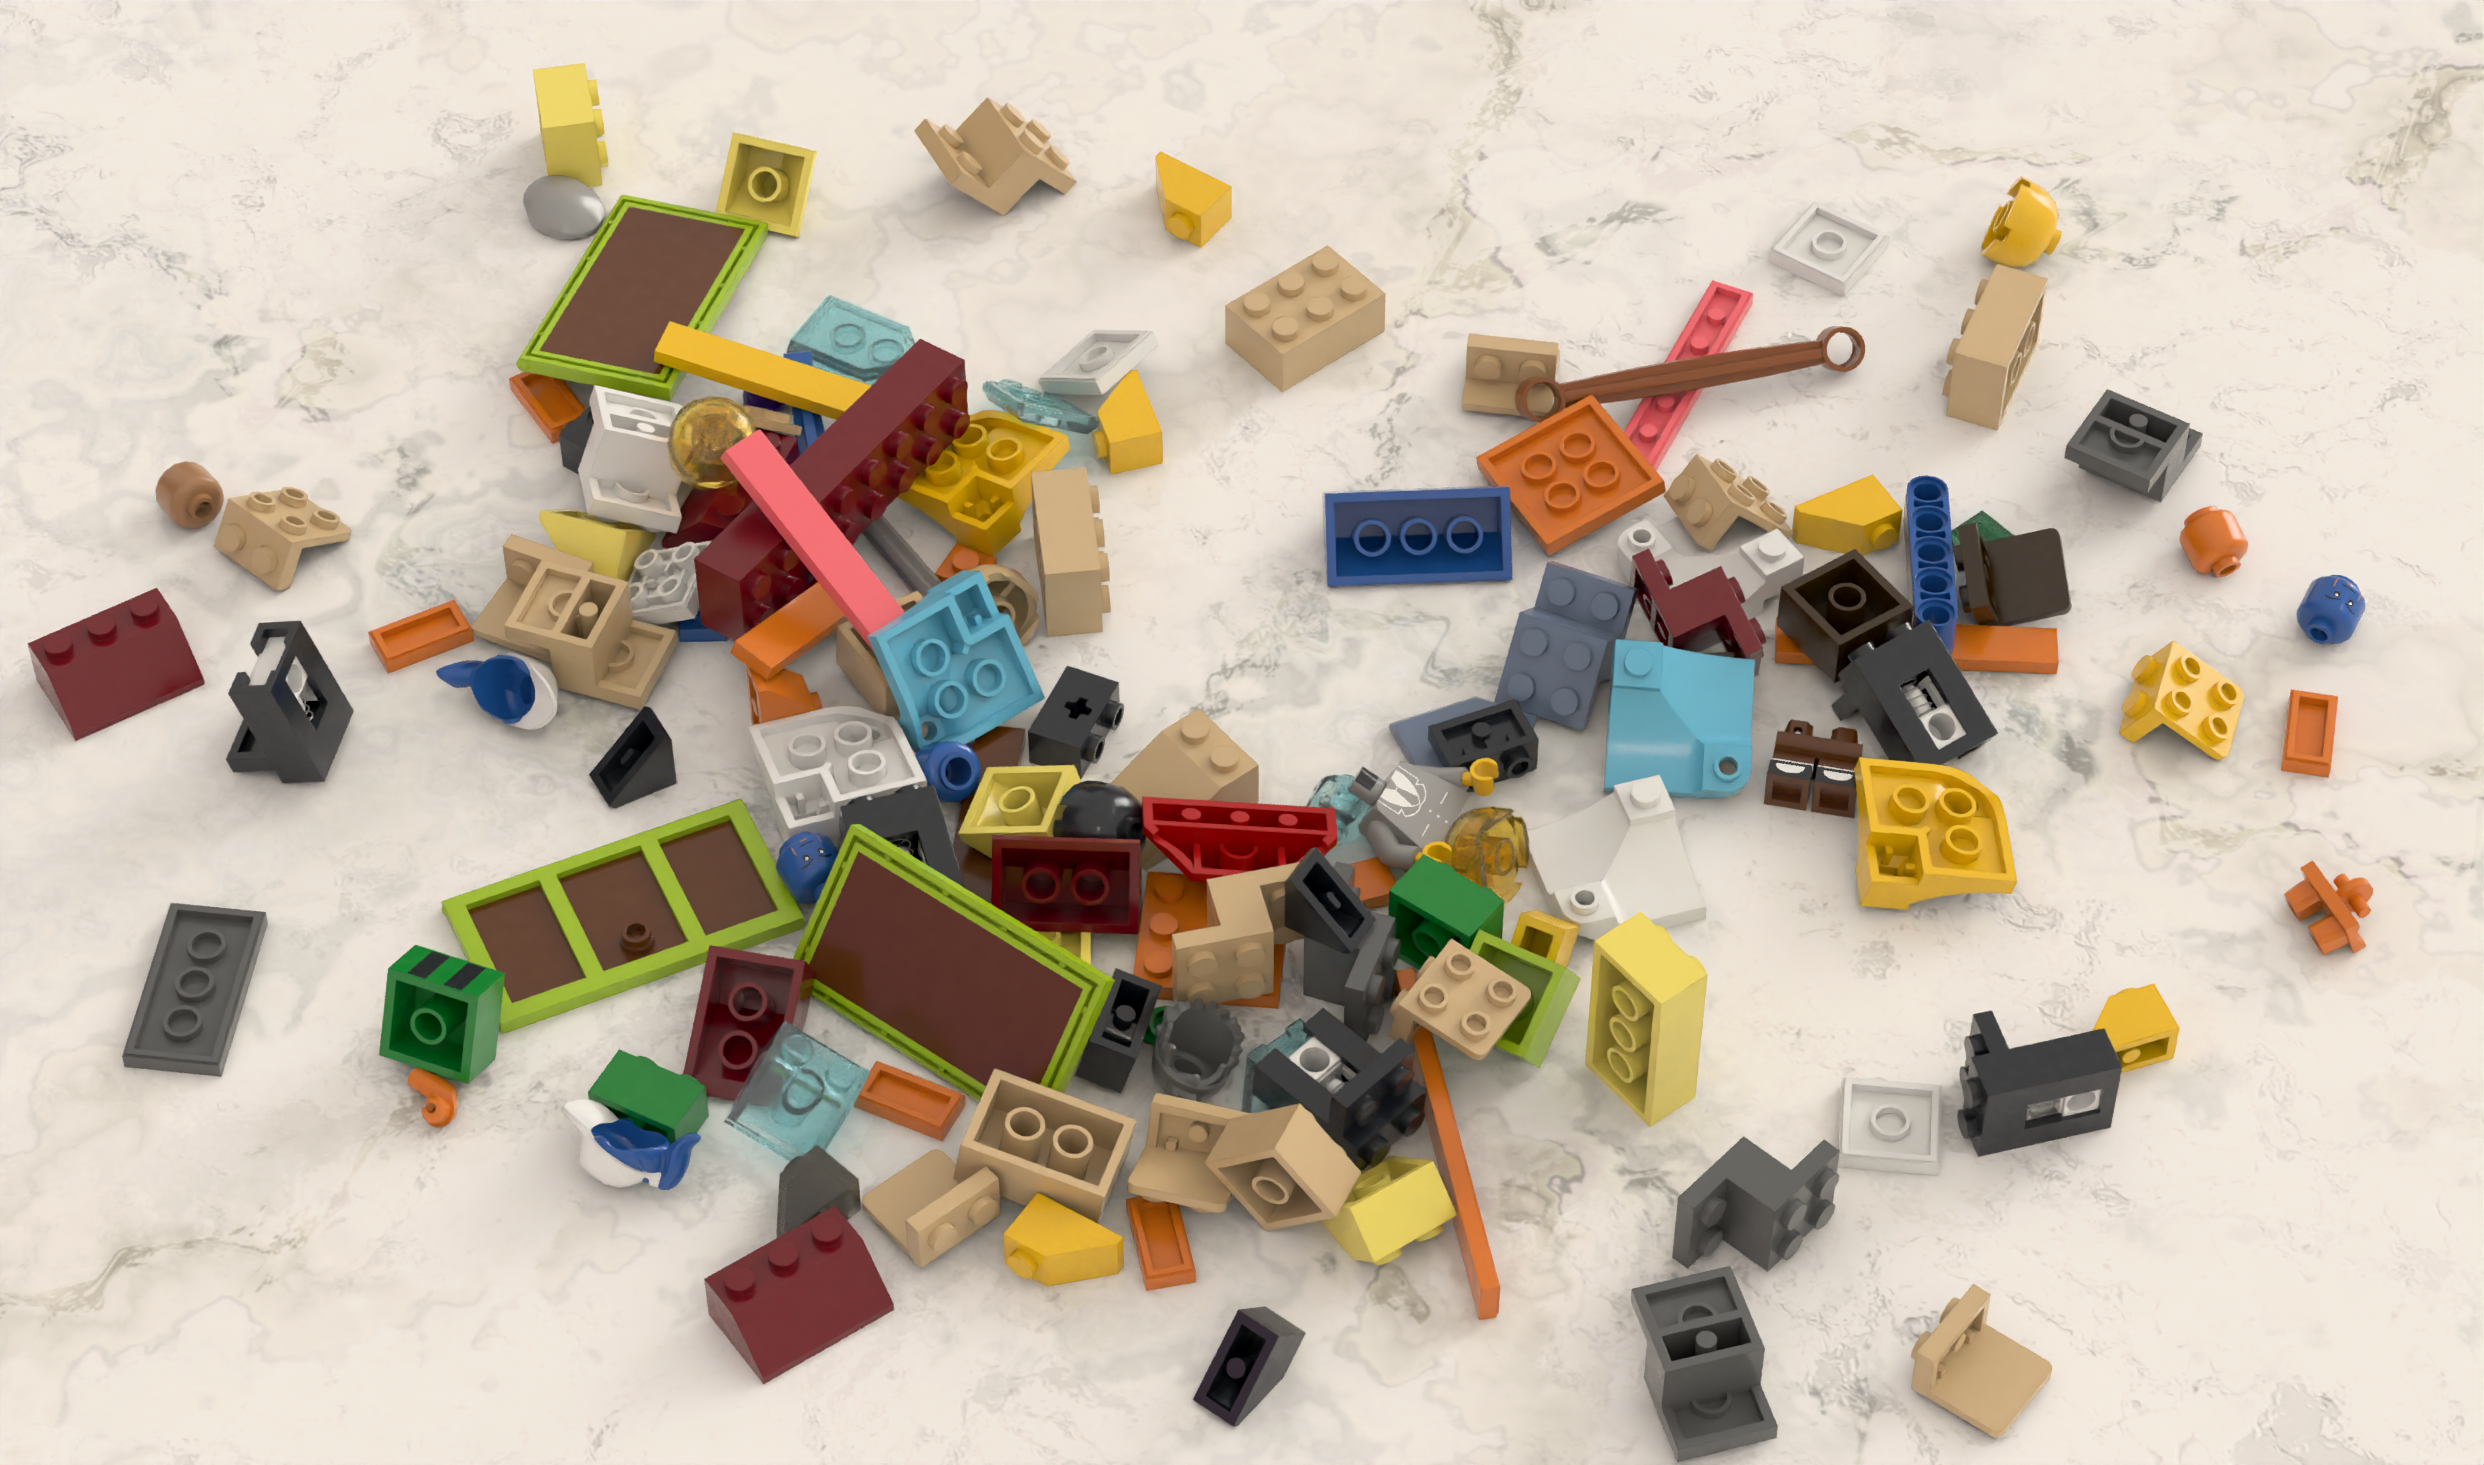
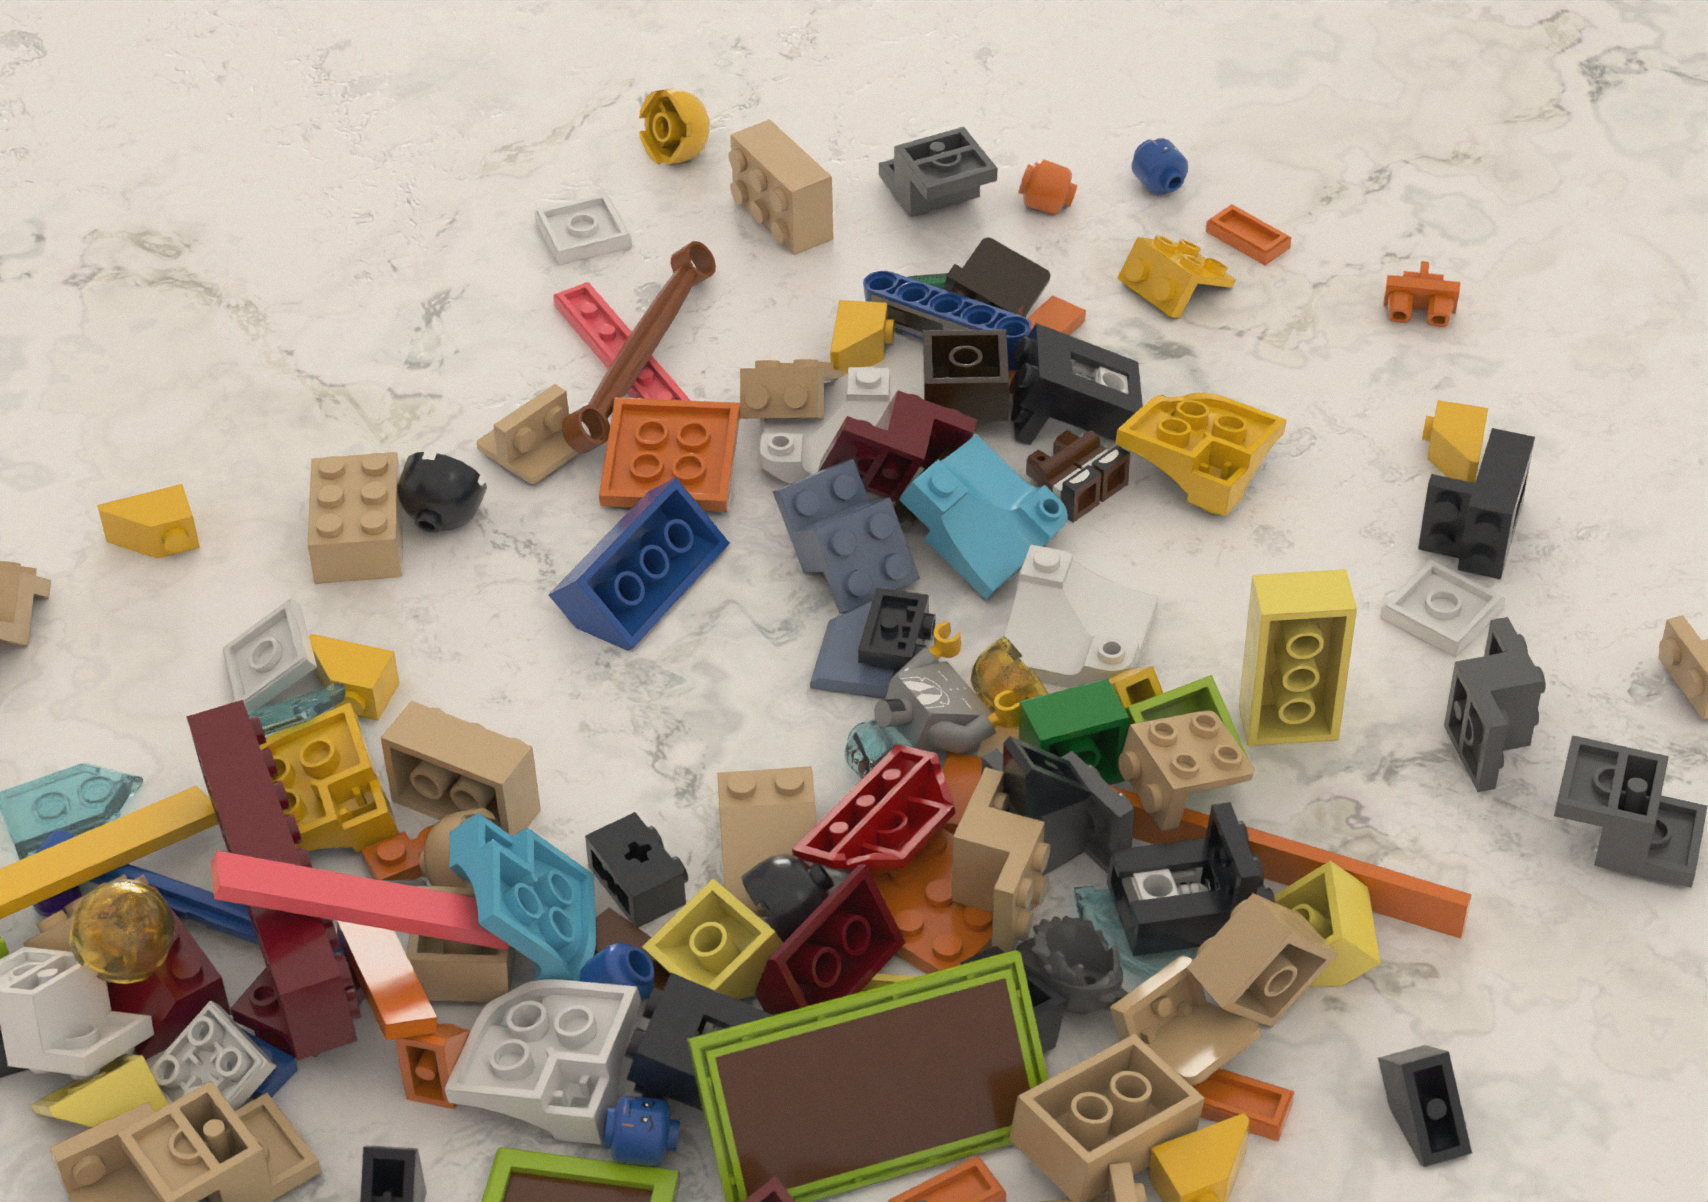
camera: 55 degrees left, 5 degrees down
(1371, 353) = (439, 492): none -> black cylinder

